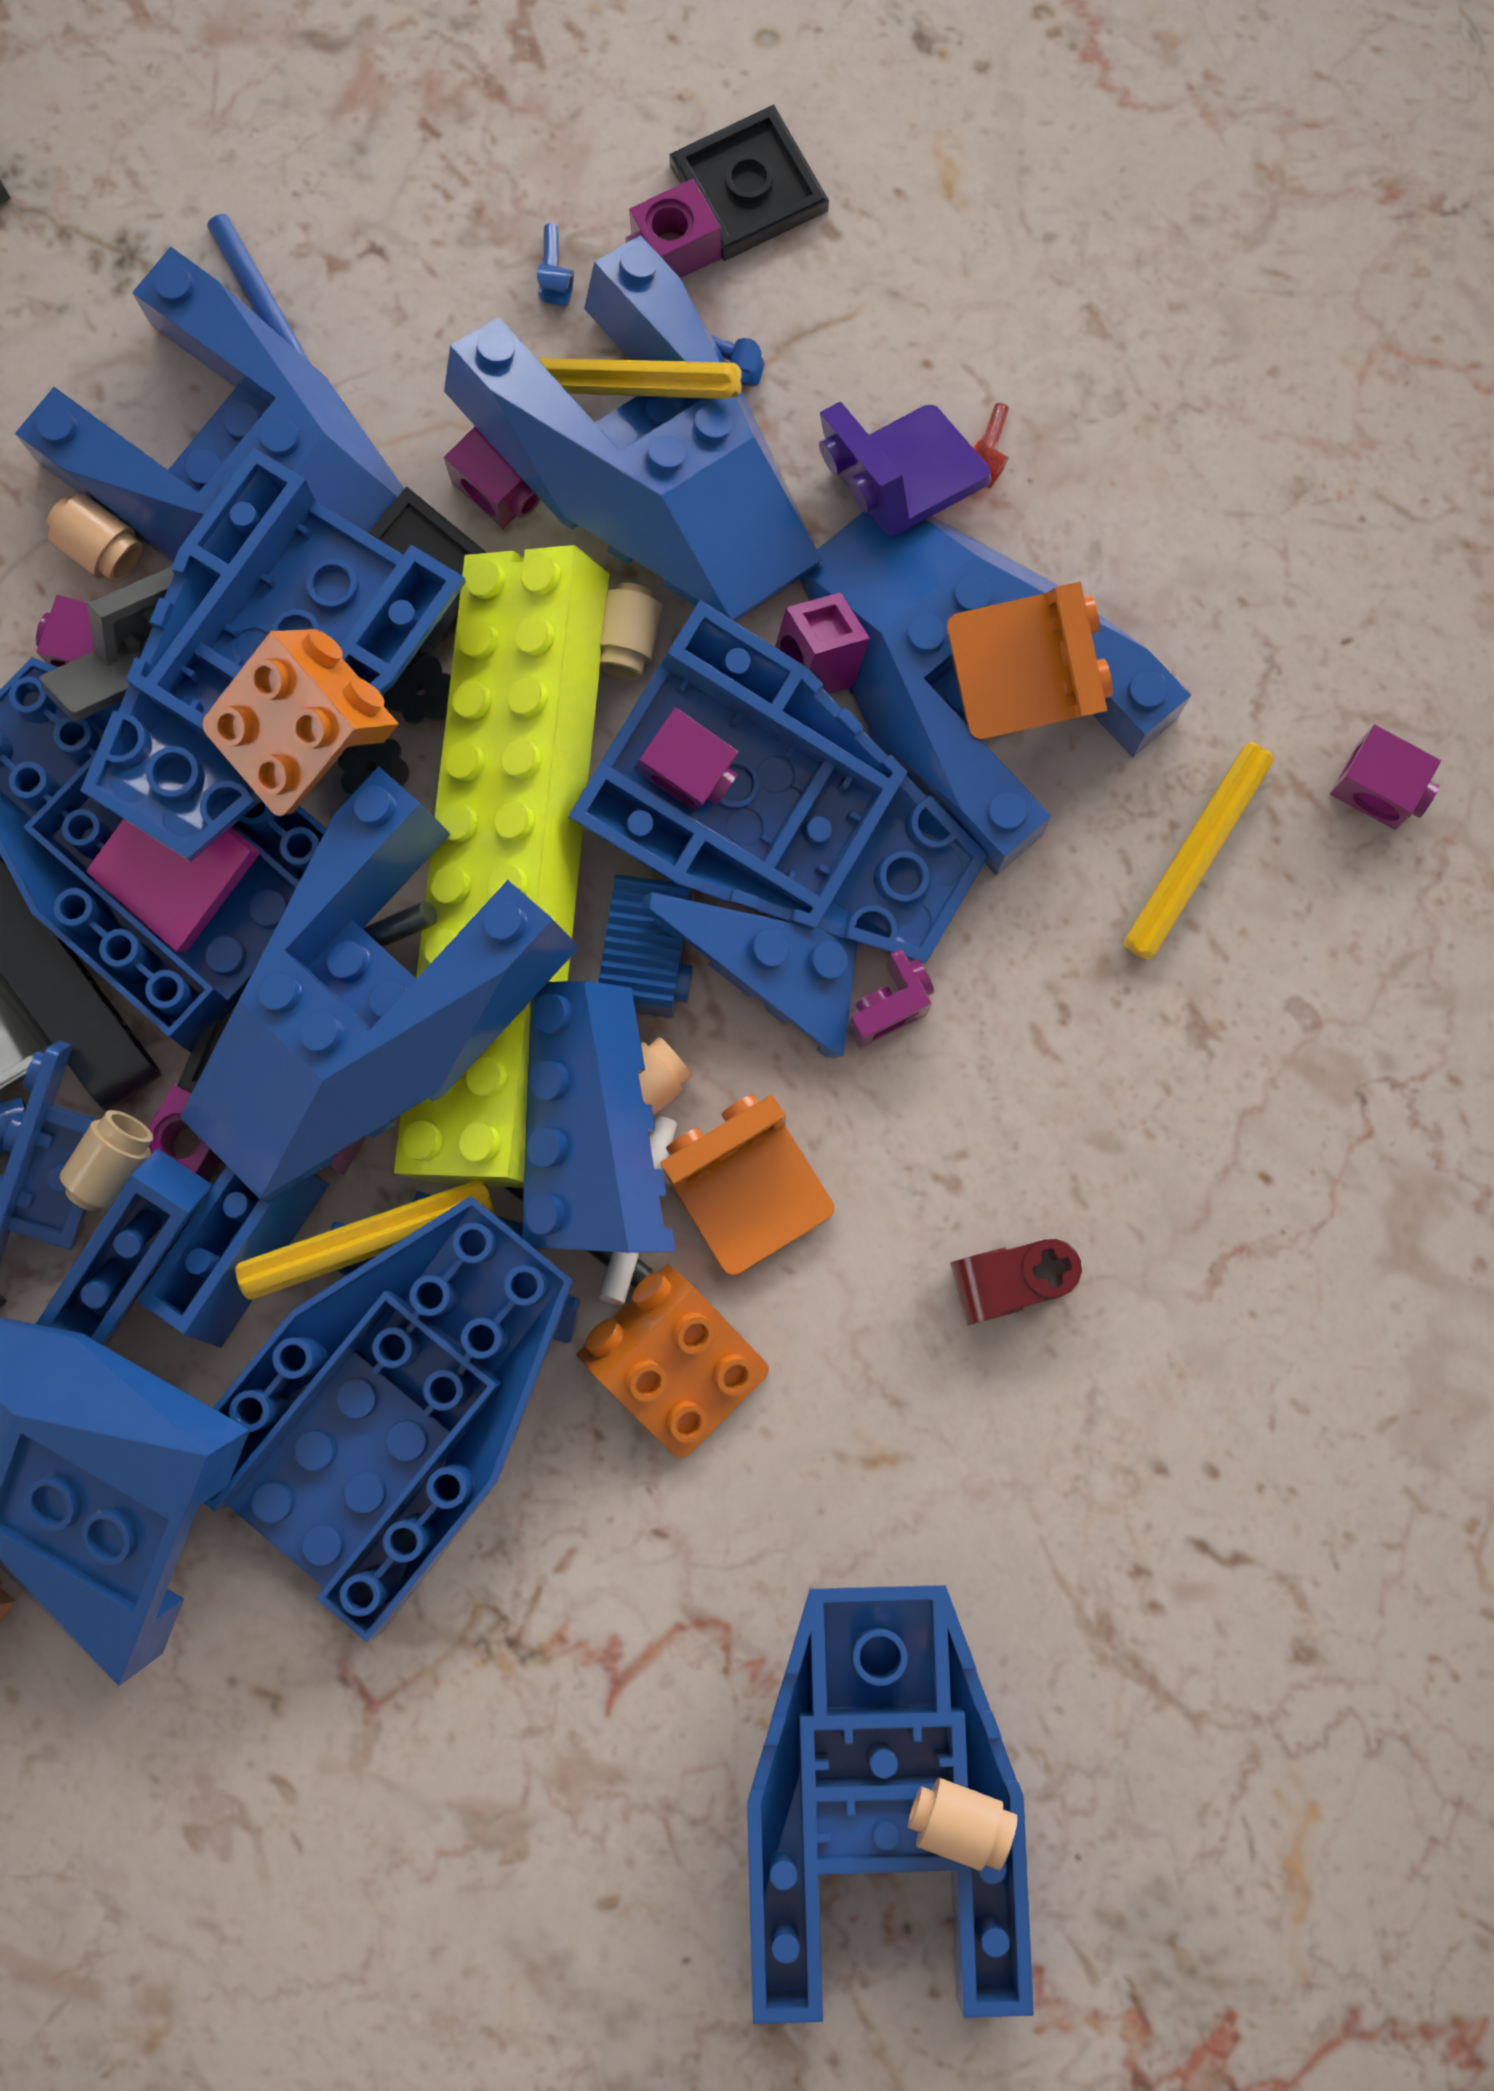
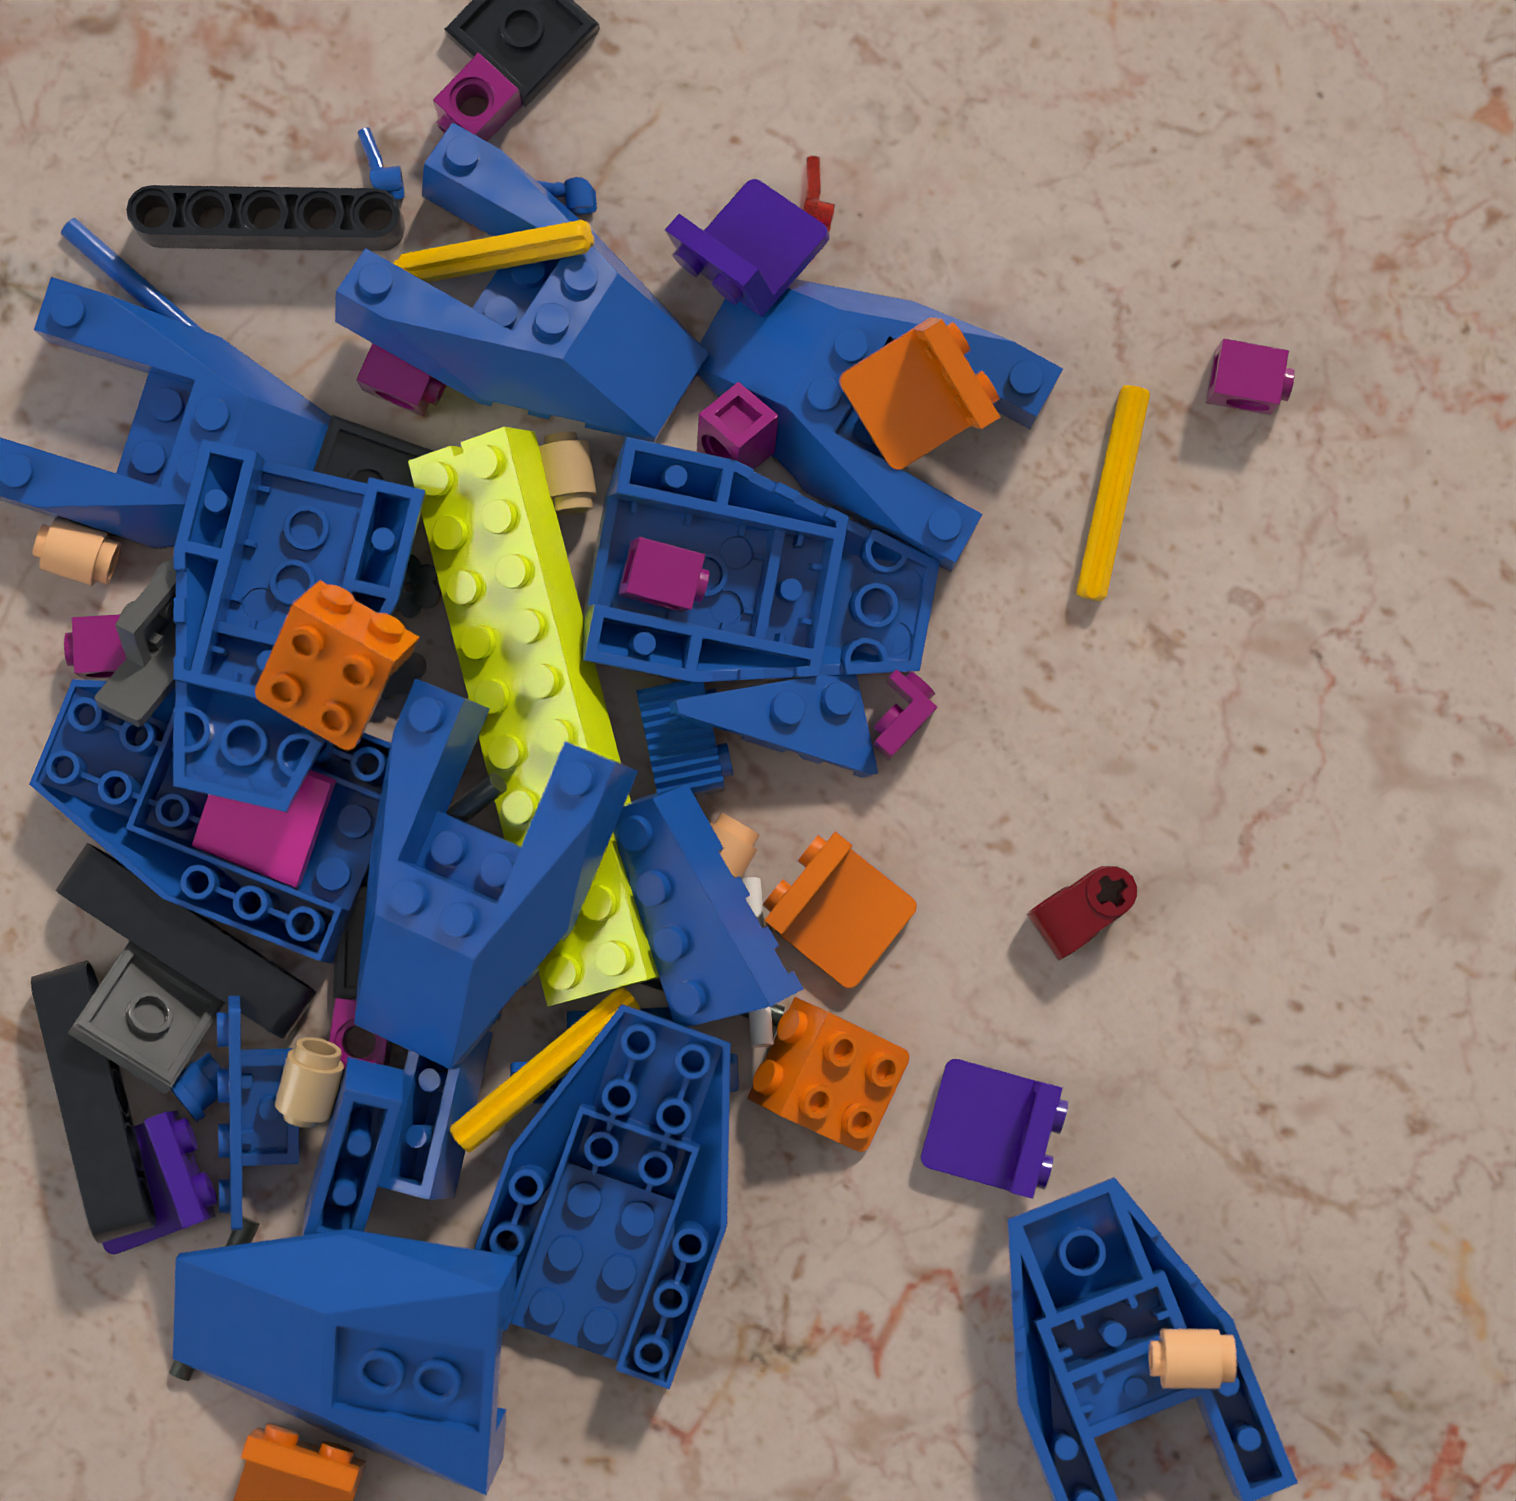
camera: 25 degrees left, 5 degrees up
(402, 252) = (243, 205): none -> black beam
(831, 1483) = (993, 1127): none -> dark purple bracket

